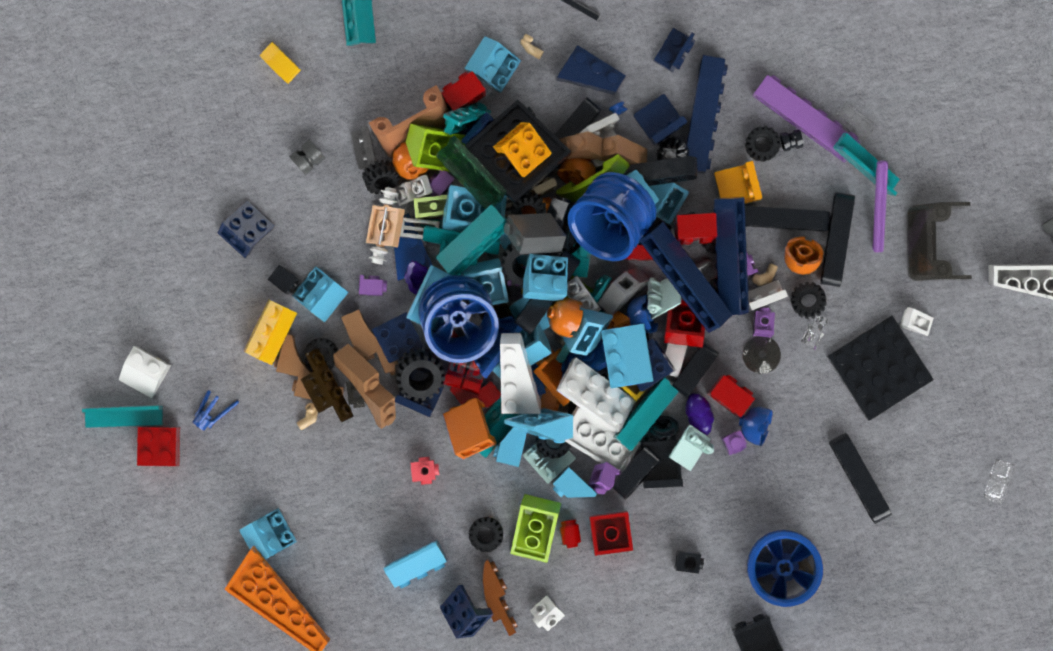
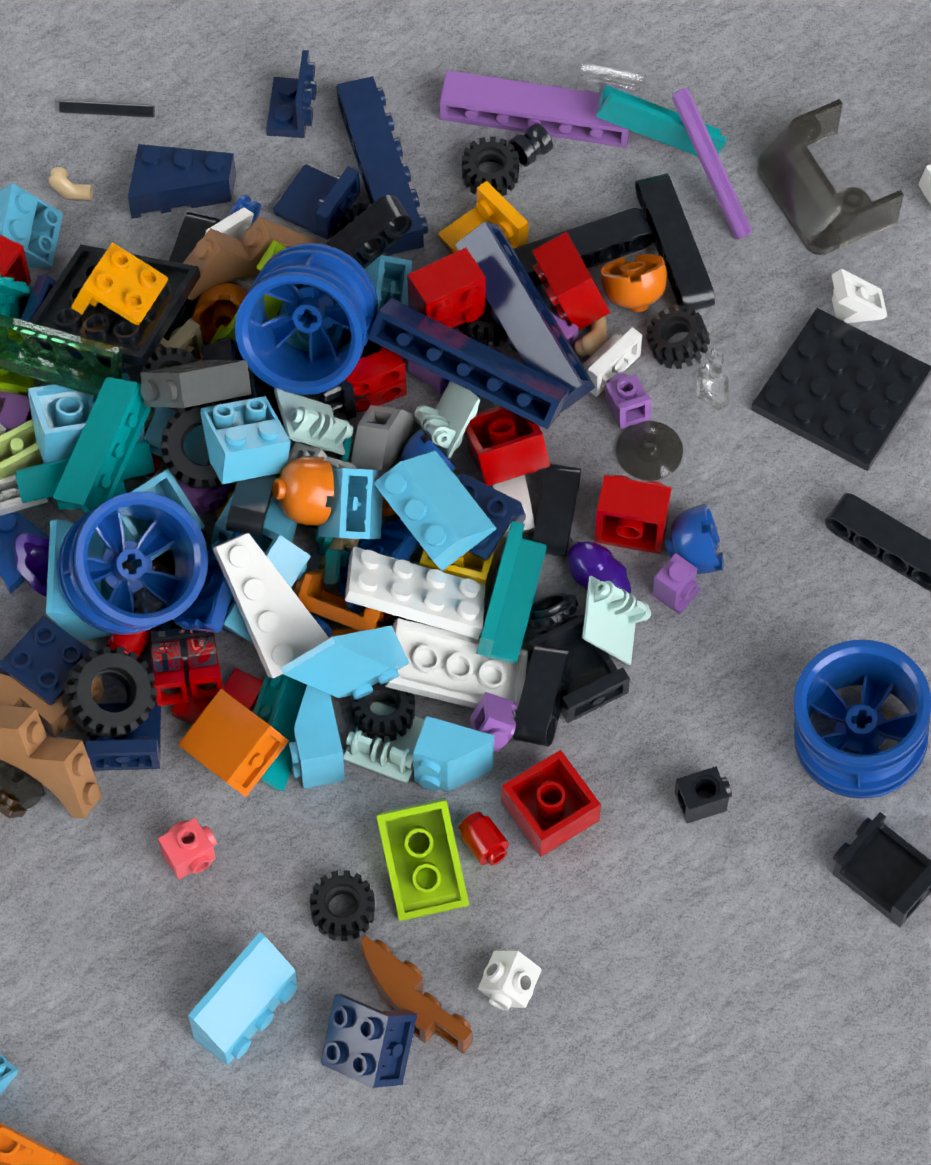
camera: 25 degrees left, 25 degrees down
(588, 271) = (312, 422): none -> light aqua hinge
(767, 244) = (569, 282): none -> red brick

